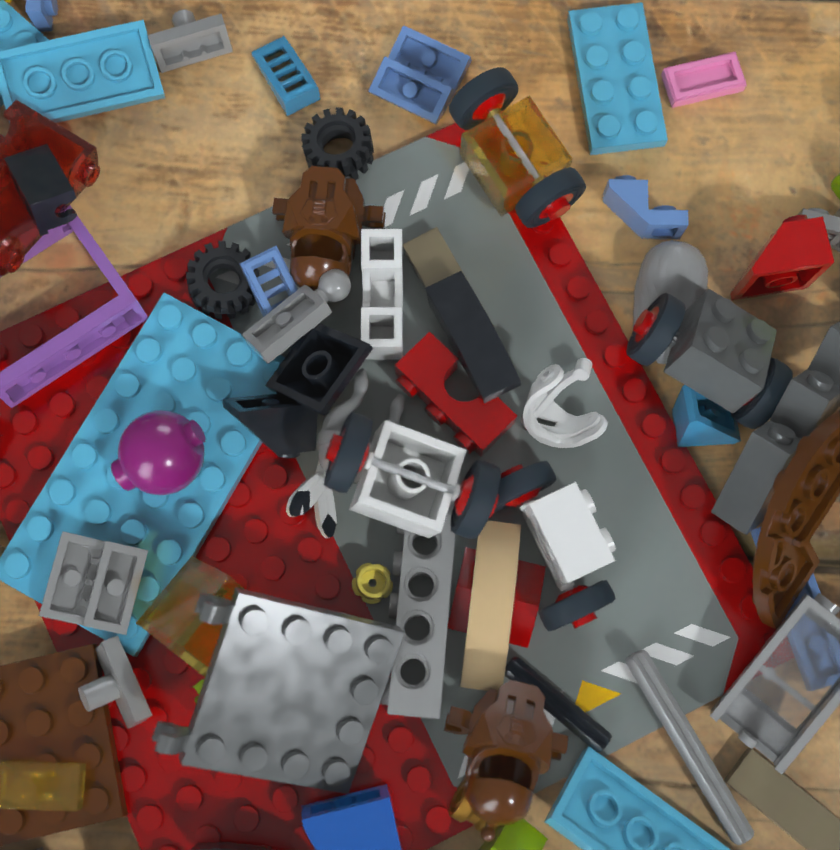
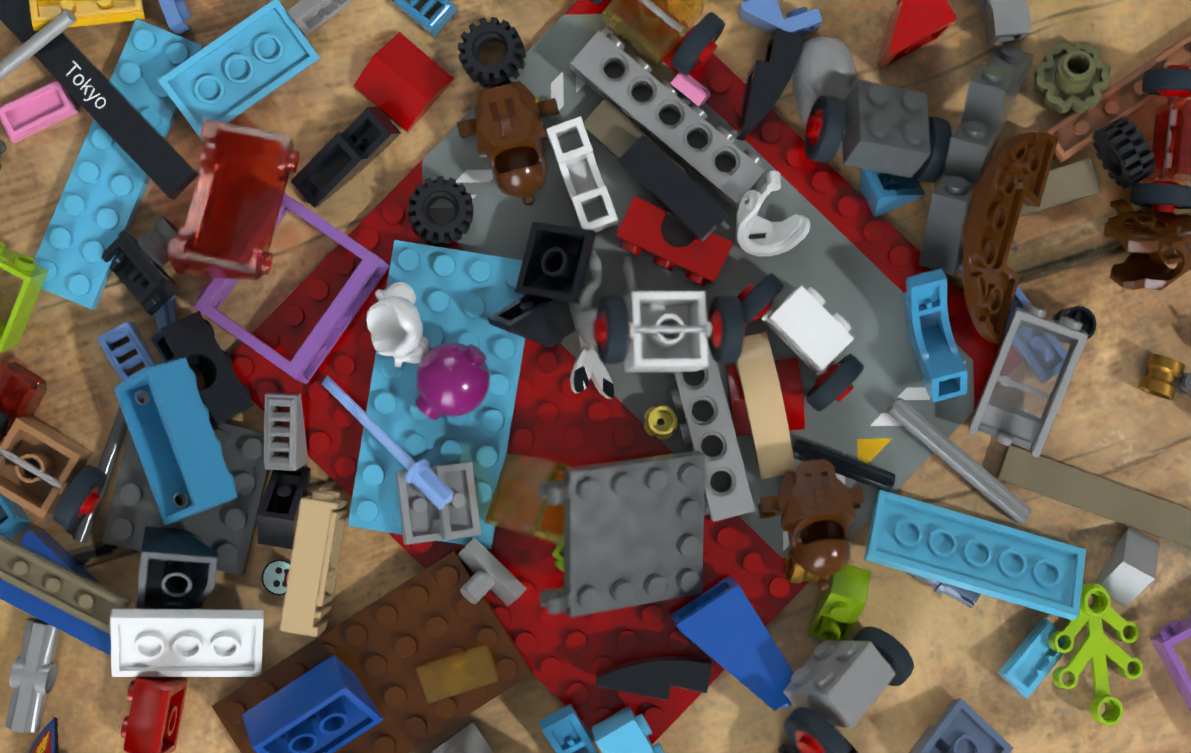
camera: 20 degrees left, 10 degrees up
(42, 187) = (259, 188): black hinge -> none
(81, 539) = (418, 473): none -> light blue piece
(126, 375) = (397, 325): none -> white hair
(151, 195) = (345, 156): none -> black slope
(238, 146) = (403, 81): none -> red slope
(261, 297) = (512, 224): medium blue slope -> none
(296, 315) = (519, 224): light grey plate -> none
(450, 180) = (608, 49): none -> light grey brick
(528, 246) = (691, 88): none -> bright pink tile
(611, 266) = (768, 80): none -> black slope
(701, 593) = (932, 337): none -> dark azure arch

